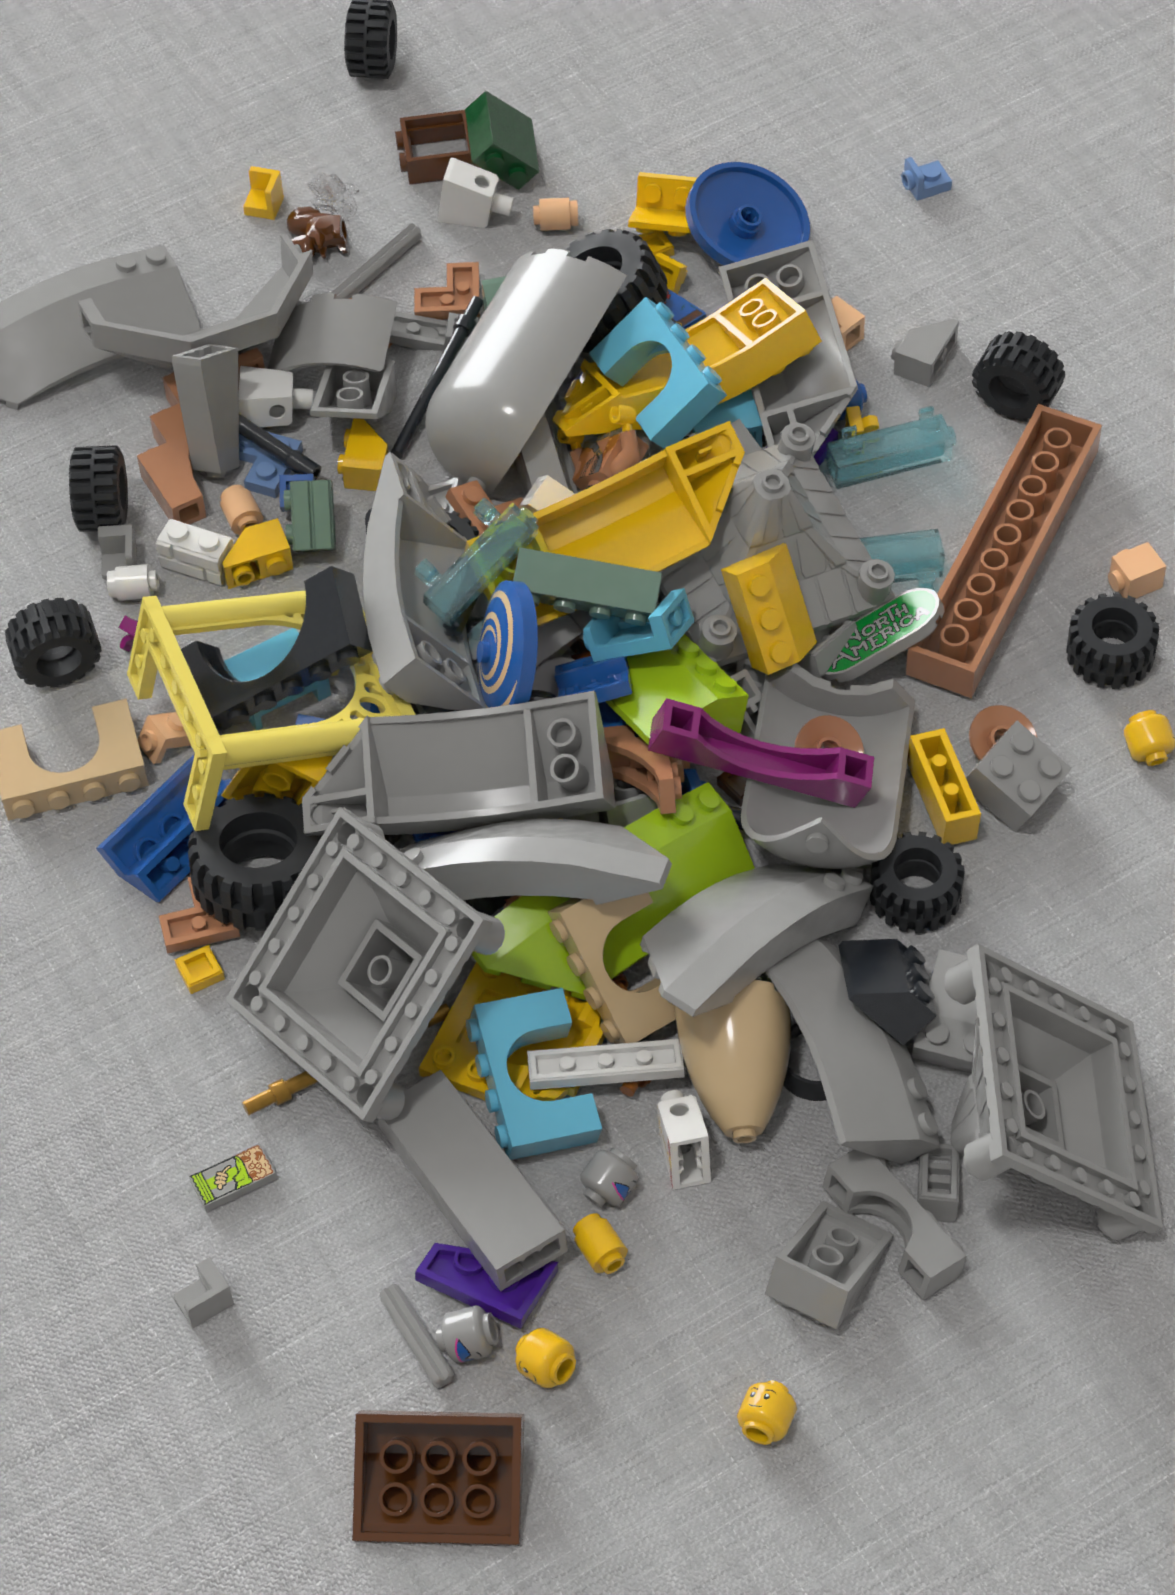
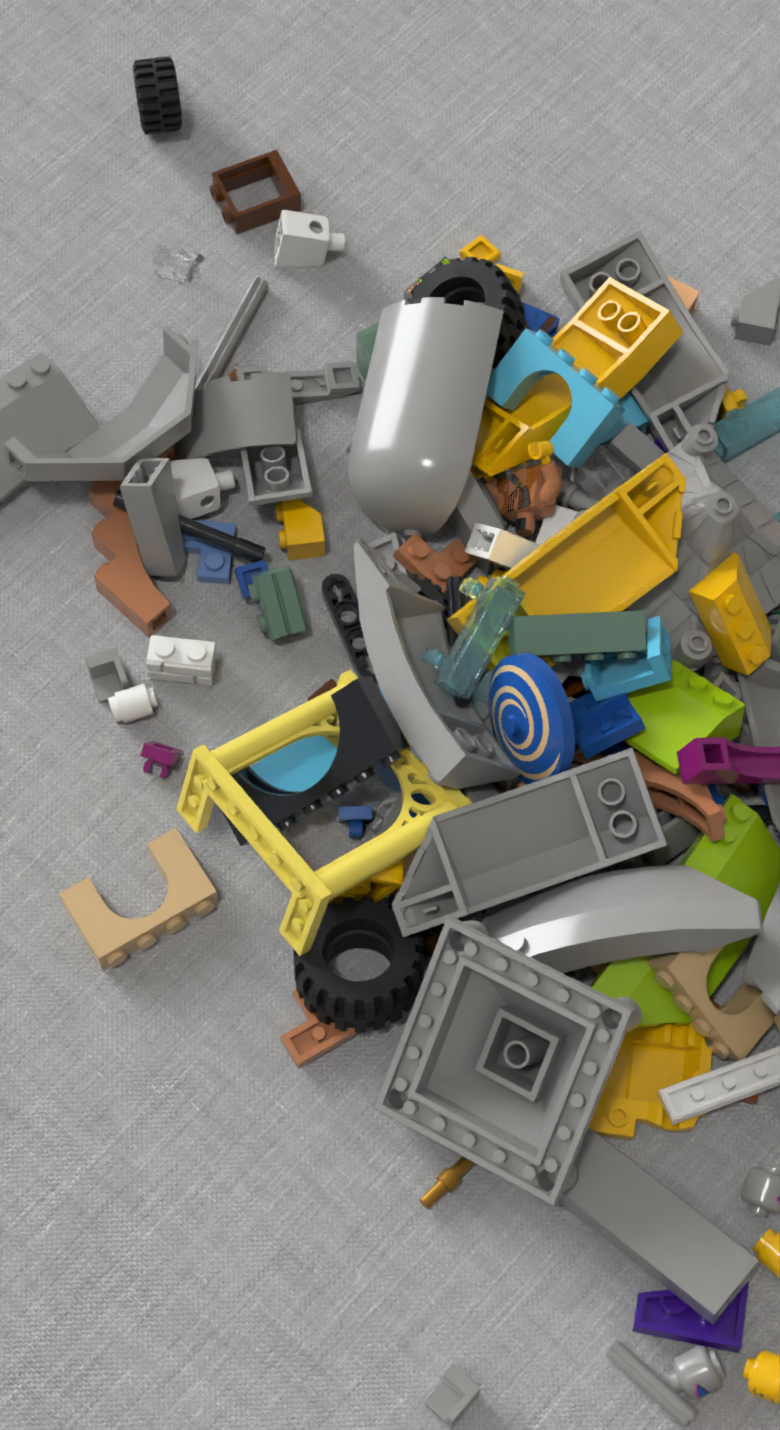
camera: 20 degrees left, 10 degrees up
(53, 642) = (89, 788): black tyre -> none
(98, 487) = (73, 619): black tyre -> none
(153, 841) = (253, 956): blue slope -> none
(160, 734) = (218, 851): light nougat bracket -> none
(199, 969) = (332, 1076): yellow tile -> none
(233, 1177) = (436, 1274): tile -> none
(240, 508) = (206, 607): light nougat brick -> none
(258, 554) = (240, 647): yellow slope -> none
(265, 193) = (109, 274): yellow panel -> none
(317, 230) = (174, 299): reddish brown animal -> none
(462, 285) = (324, 346): nougat plate -> none
(462, 328) = (345, 378): black bar -> none
(502, 140) = (314, 177): dark green brick -> none
(527, 1124) = (675, 1159): medium azure arch -> none
(555, 214) = (385, 240): light nougat brick -> none
(661, 204) = (483, 213): yellow bracket -> none
(744, 212) = (561, 212): blue dish -> none
(925, 179) = (698, 137): medium blue bracket -> none

